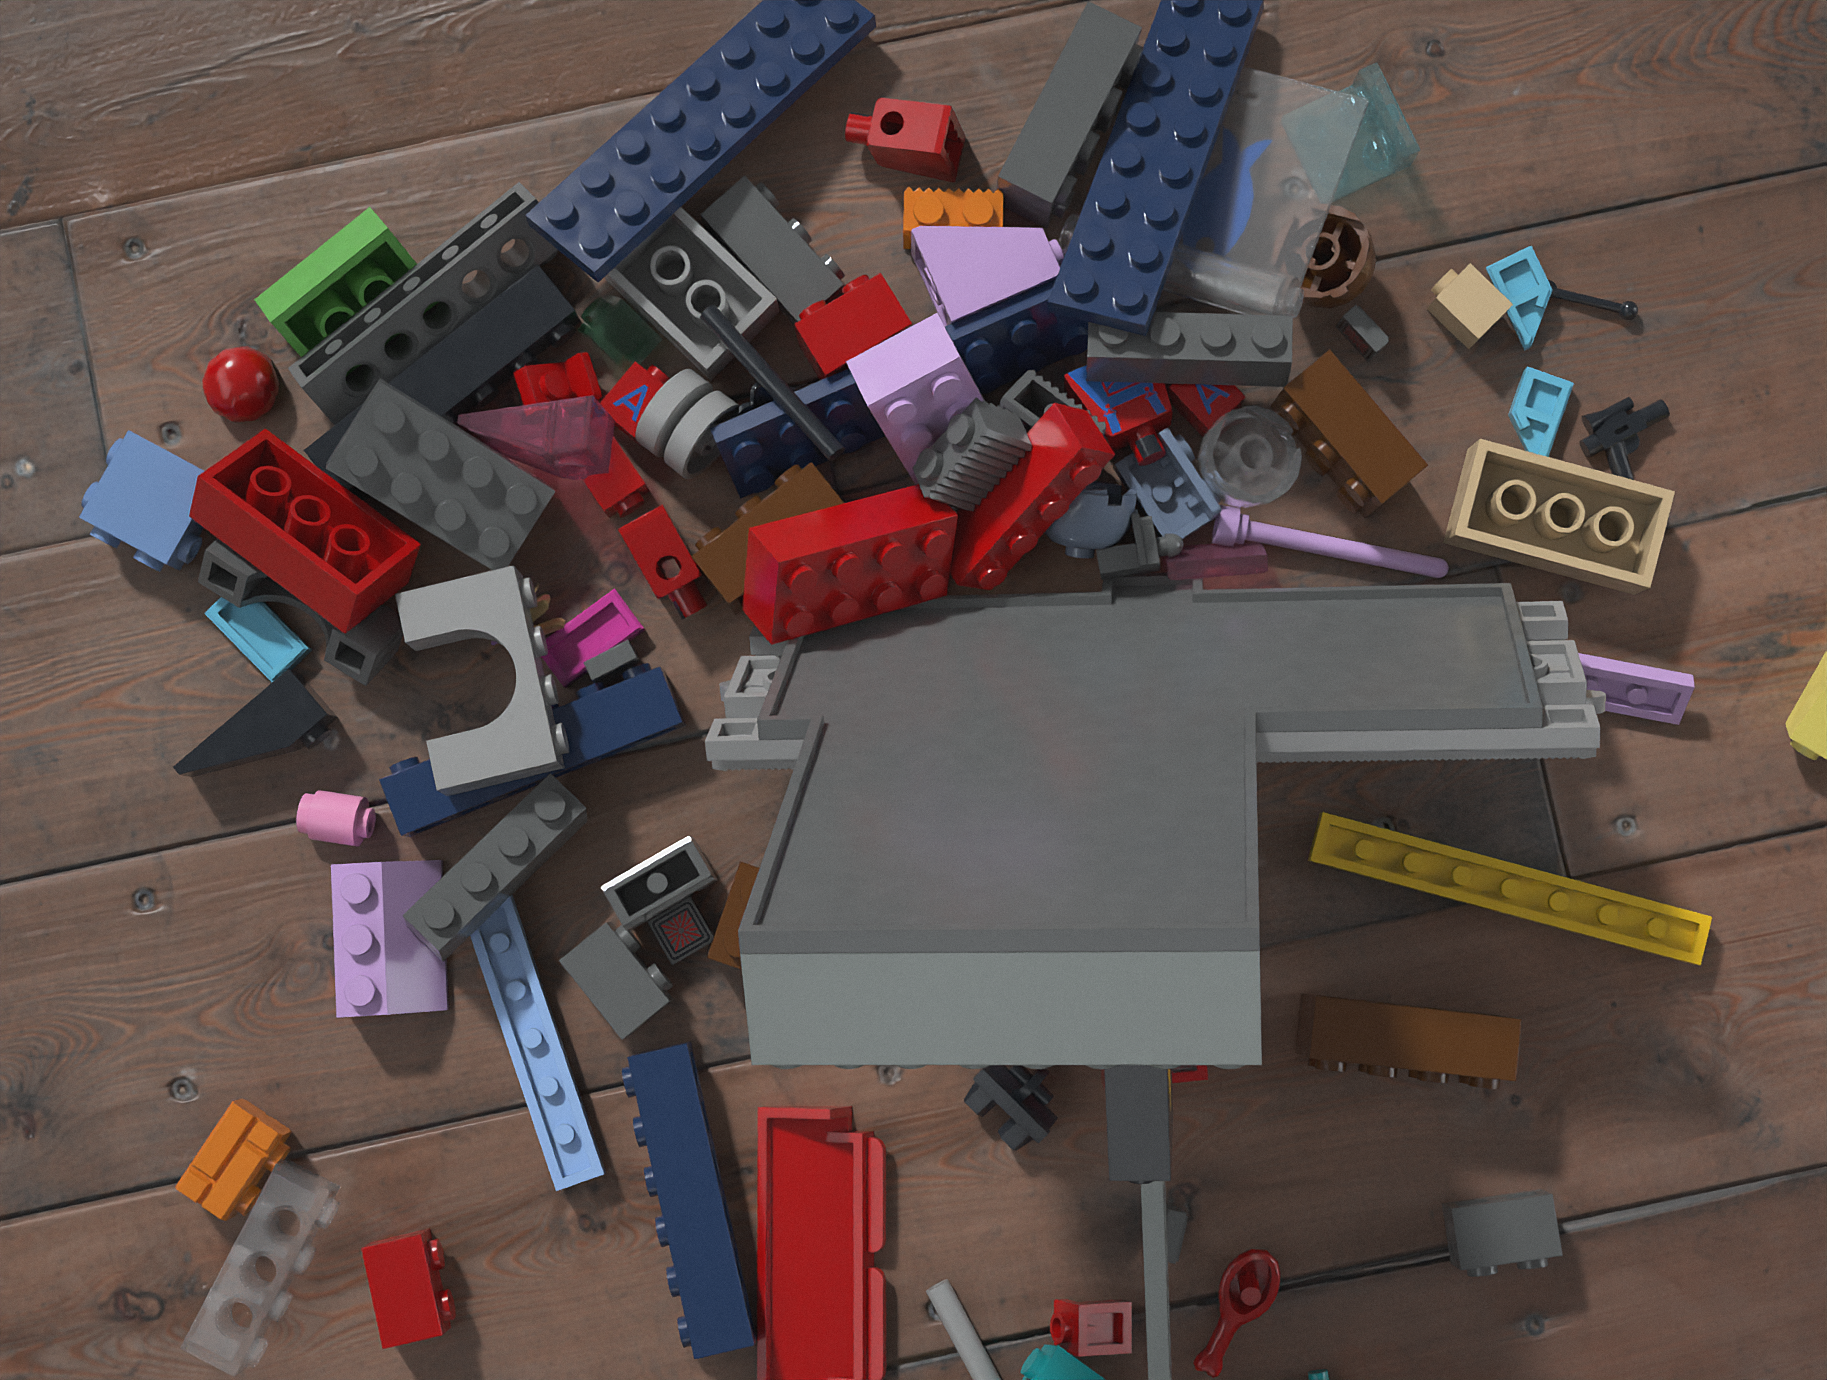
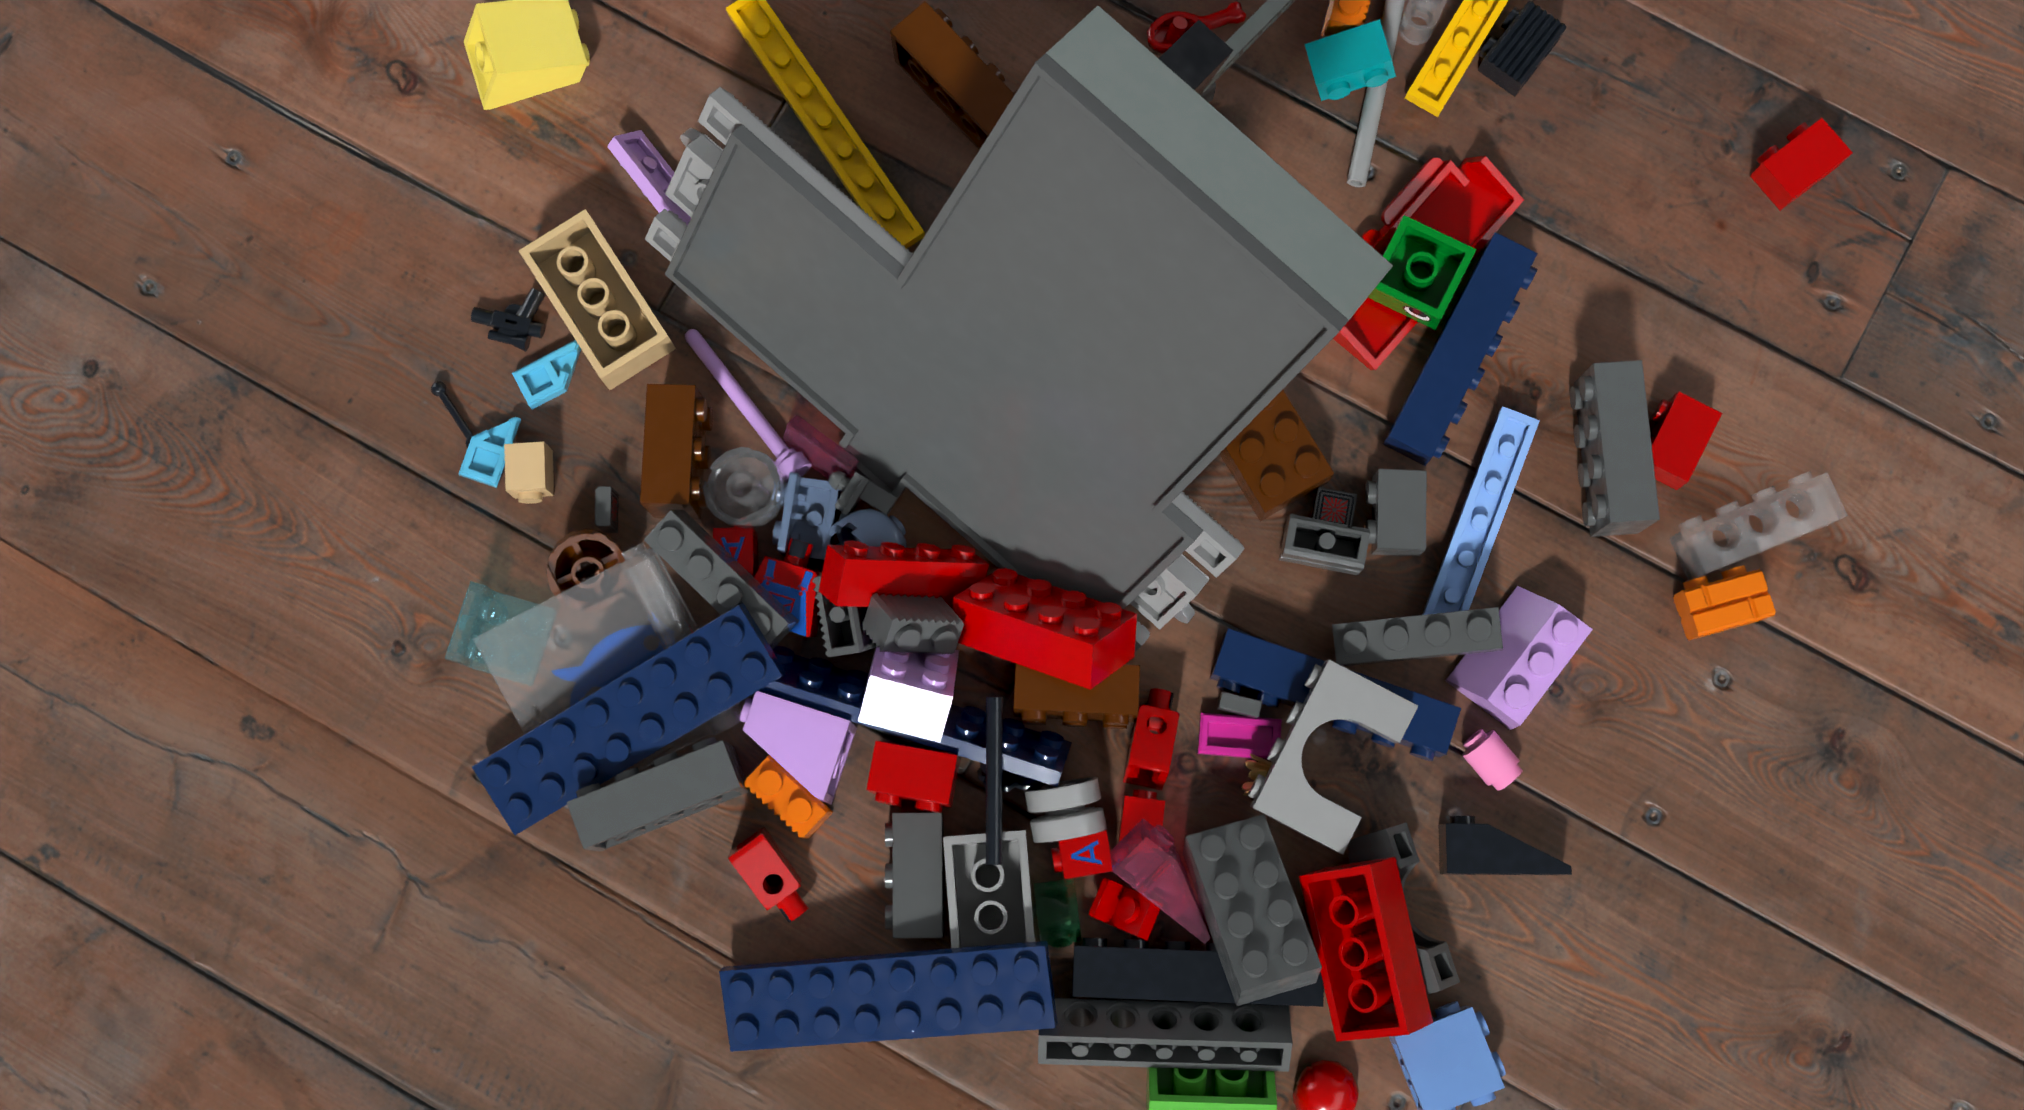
camera: 135 degrees left, 5 degrees down
(260, 636) = (1446, 916): medium azure tile -> none
(457, 1219) = (1615, 449): none -> dark grey brick
(792, 1236) = (1423, 272): none -> green brick
(1092, 1327) = (1286, 84): bracket -> none

